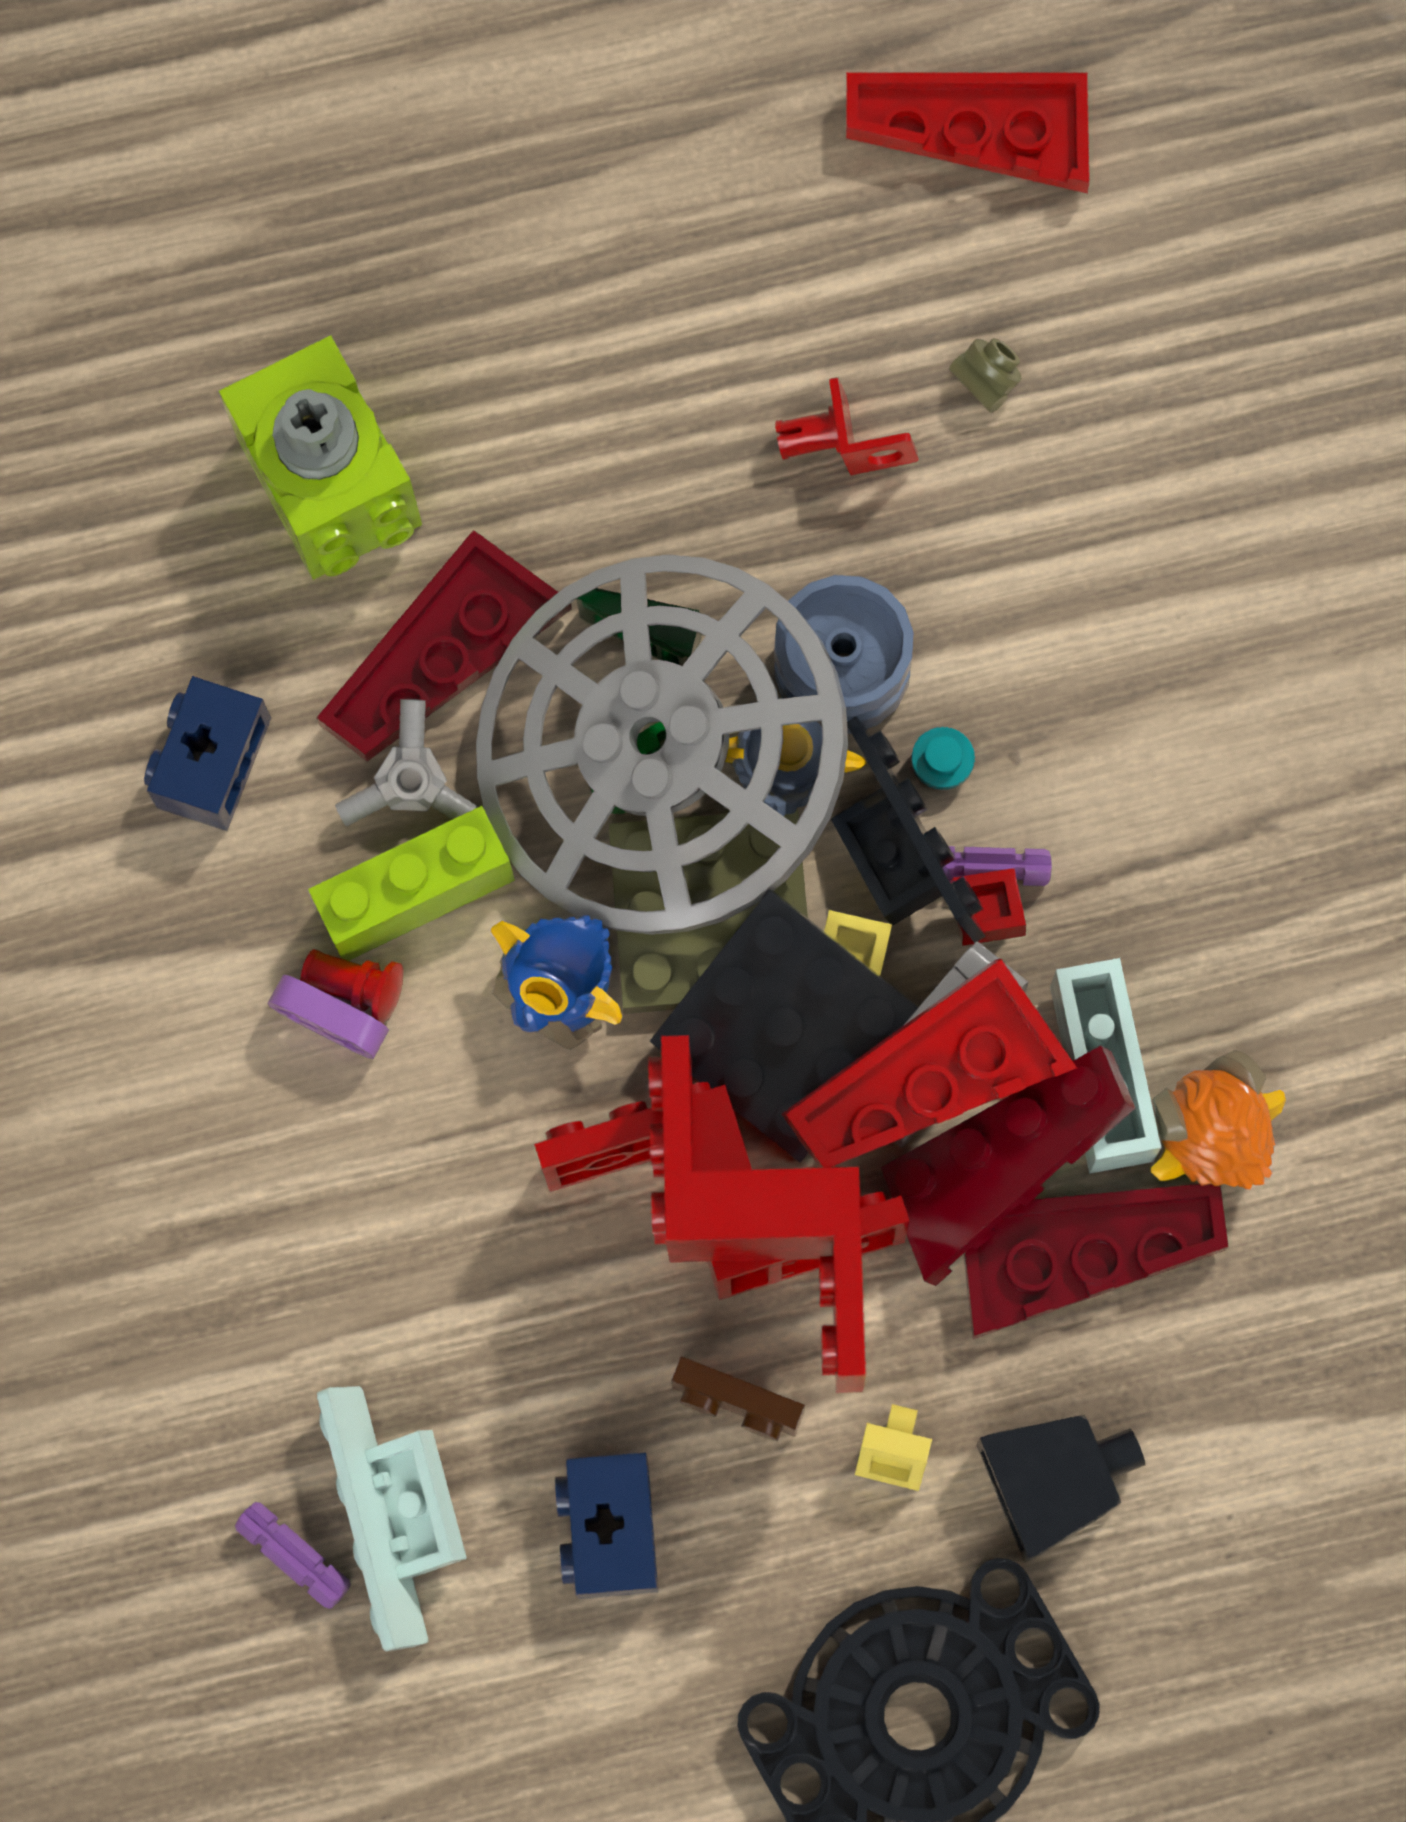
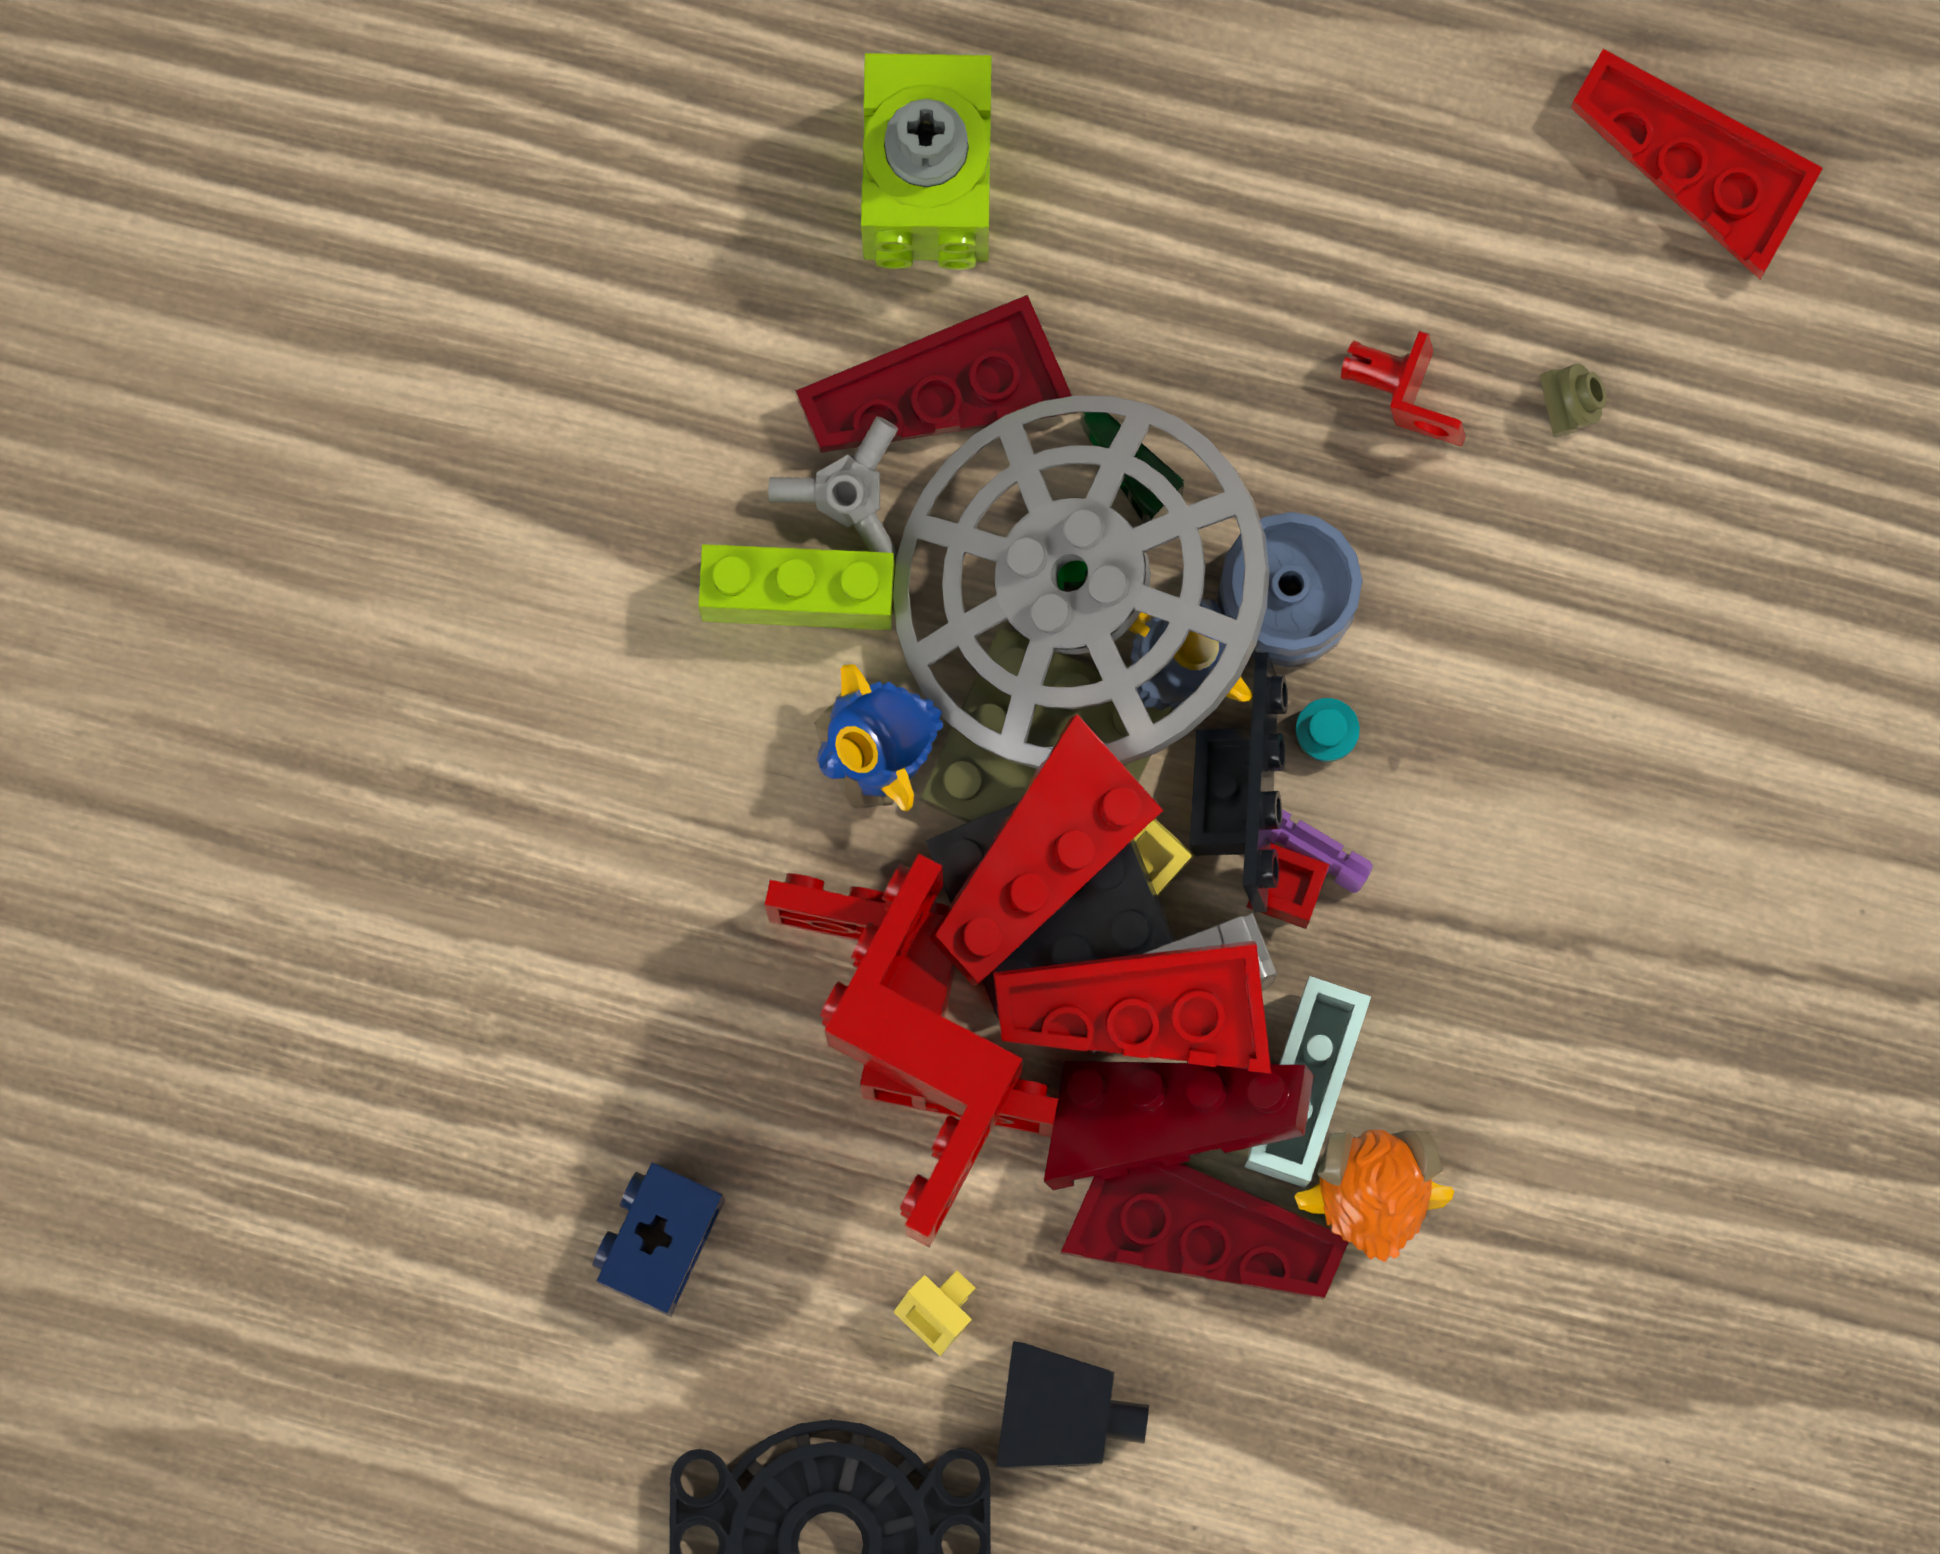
camera: 25 degrees right, 5 degrees up
(214, 784) = (675, 401): dark blue brick -> none
(292, 1555) = (379, 1112): medium lavender axle -> none
(328, 1016) = (661, 664): medium lavender beam -> none
(361, 984) = (704, 650): red pin -> none
(395, 1512) = (484, 1125): light aqua bracket -> none
(710, 1389) = (808, 1171): reddish brown plate -> none
(767, 974) = (1054, 841): none -> red wing

